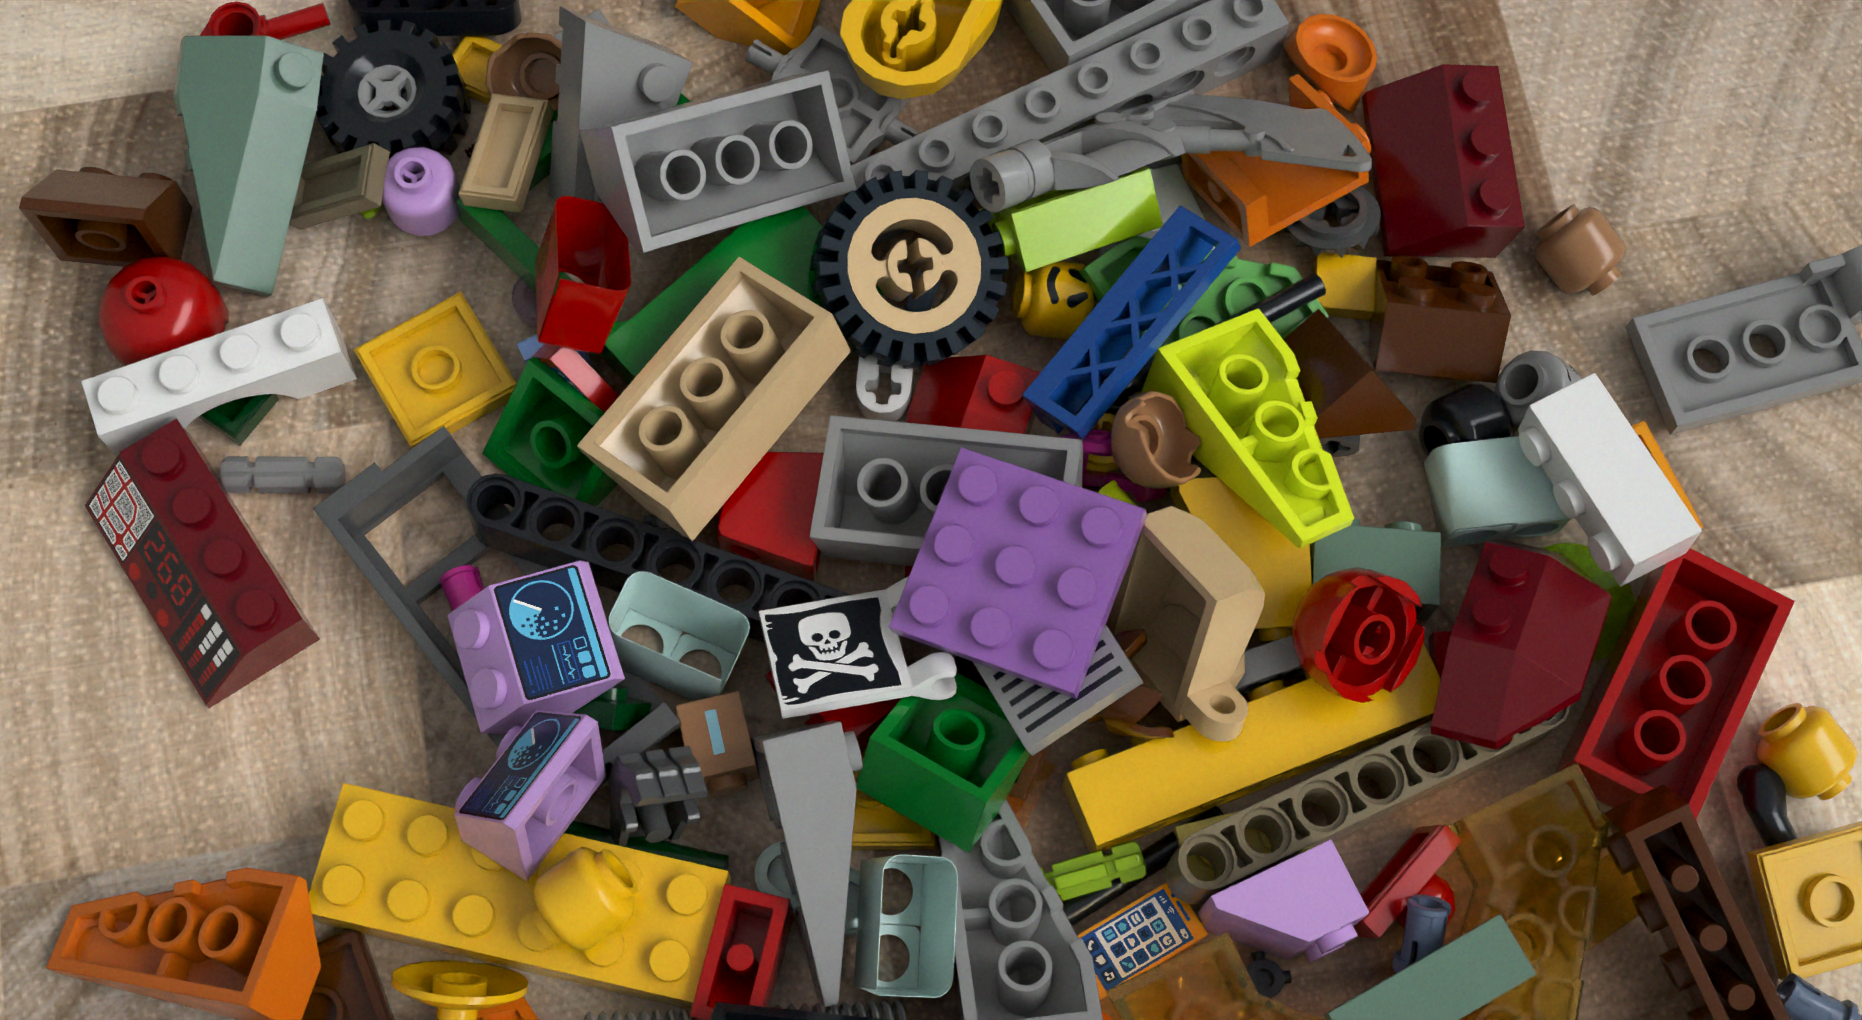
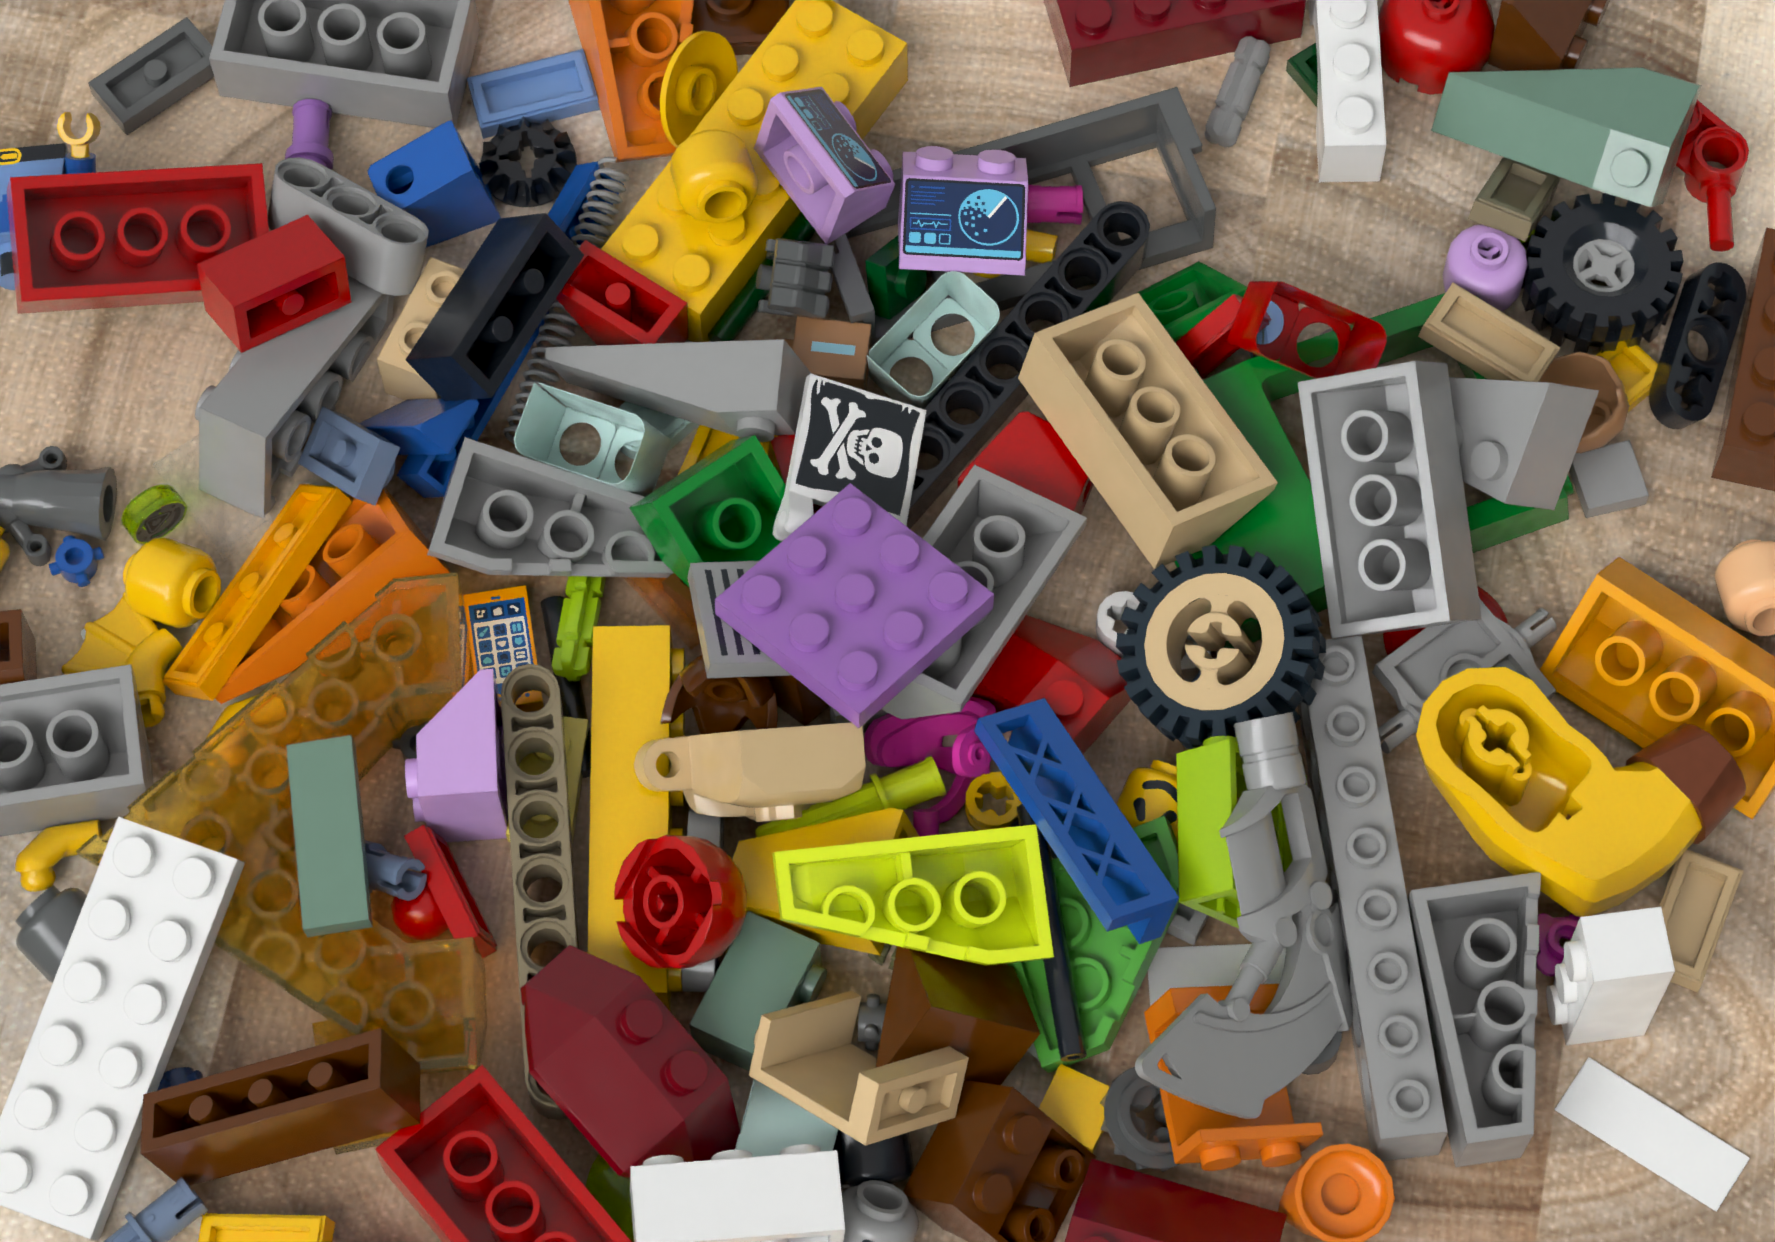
camera: 115 degrees right, 5 degrees down
(437, 370) = (1299, 238): yellow tile -> none
(1153, 441) = (941, 788): medium nougat hair -> none
(1351, 469) = (871, 1021): none -> dark grey piece
(1446, 458) = (811, 1061): none -> tan panel

